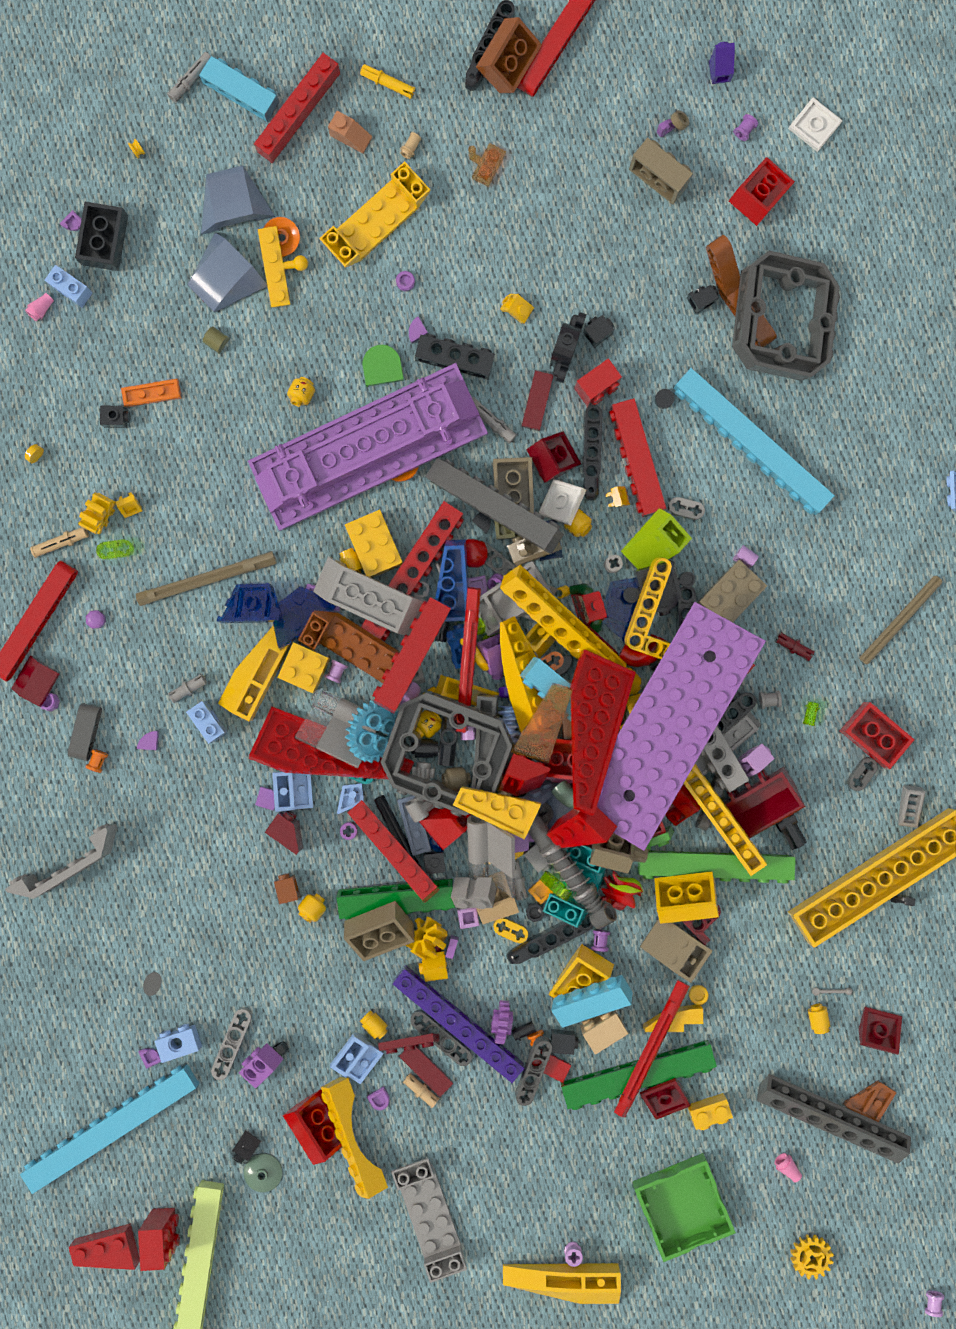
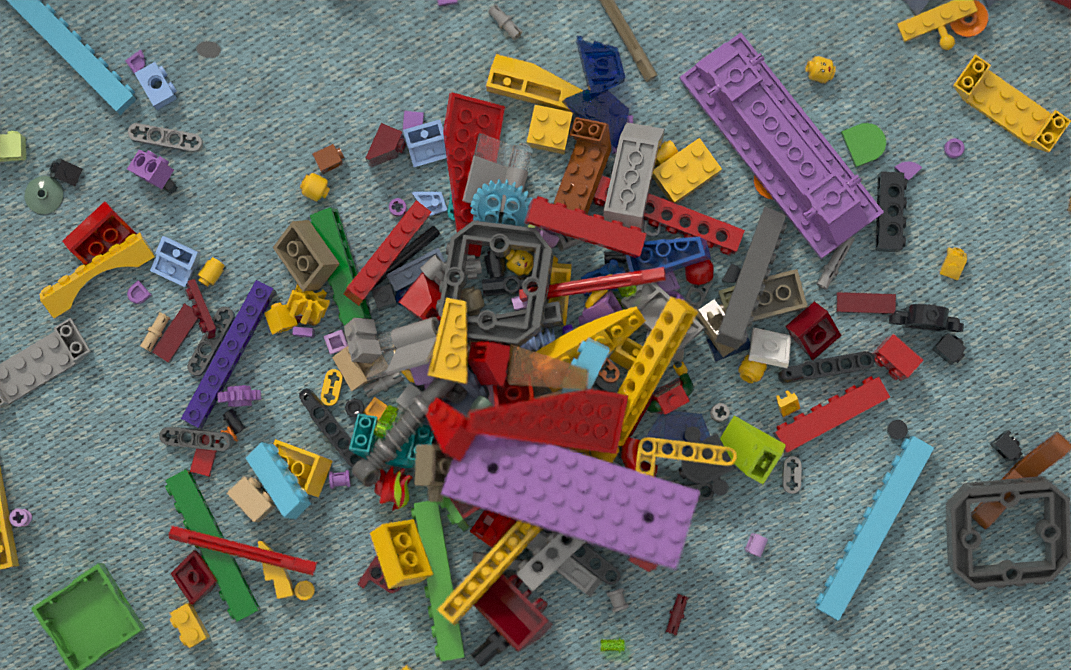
camera: 75 degrees right, 5 degrees down
(207, 722) = (476, 47): light blue brick -> none
(336, 671) = (552, 161): lavender bush -> none
(563, 1041) = (230, 463): black brick -> none
(676, 949) = (346, 556): dark tan slope -> none
(733, 592) = (716, 538): dark tan brick -> none
(755, 759) = (553, 594): lavender brick -> none

